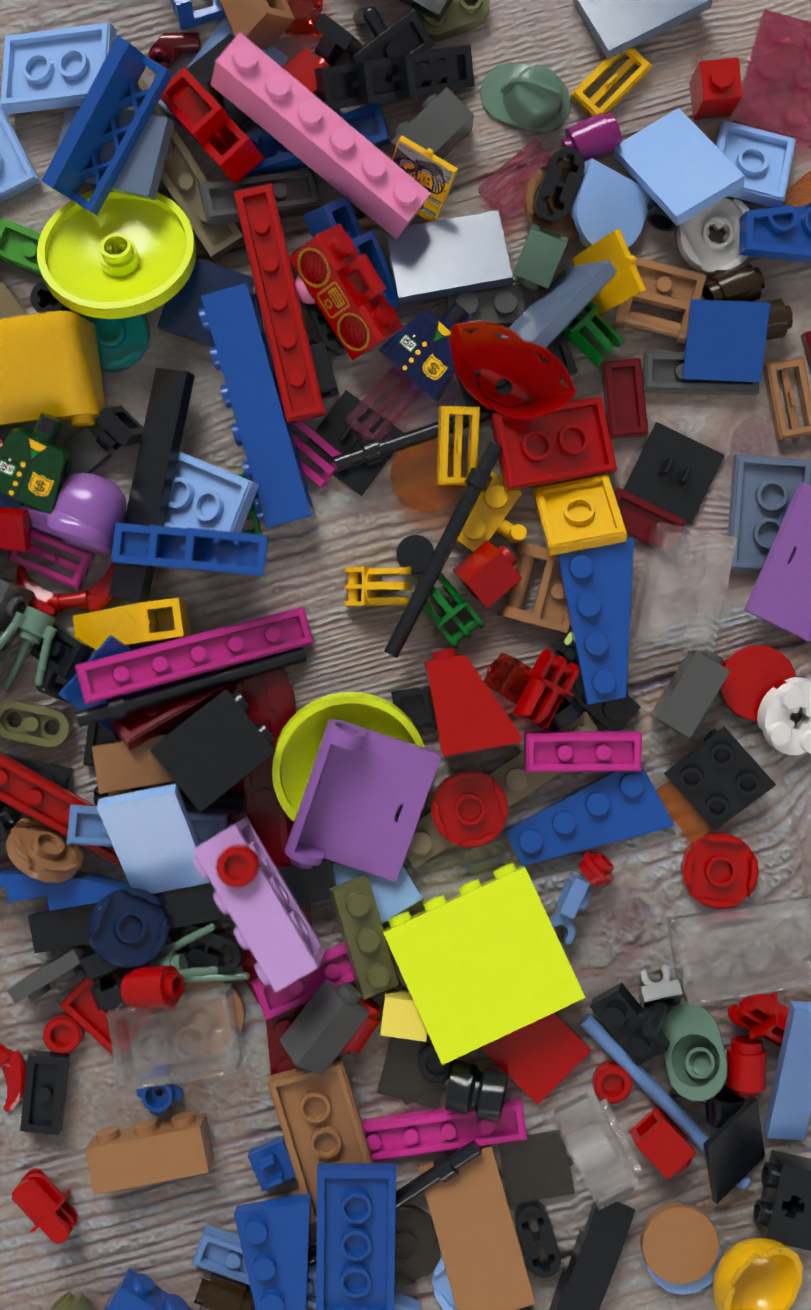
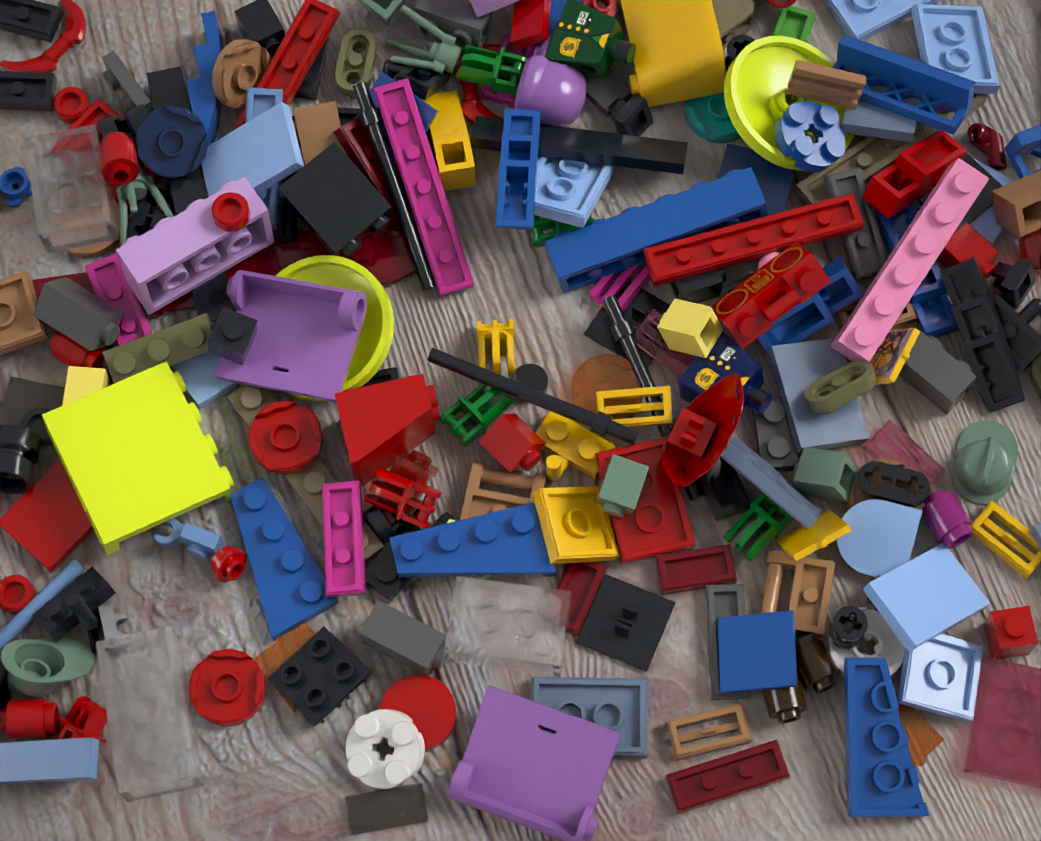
camera: 85 degrees right, 20 degrees down
(54, 582) = (486, 67): none -> green arm
(104, 205) = (825, 88): none -> medium nougat tile
(158, 213) = (822, 123): none -> plate
(365, 863) = (232, 335): none -> black brick
(378, 380) = (690, 328): none -> light yellow brick
(452, 229) = (840, 387): none -> olive plate
(496, 387) = (691, 433): none -> red tile
(551, 462) = (621, 486): none -> sand green brick
(721, 238) = (859, 627): none -> black bush

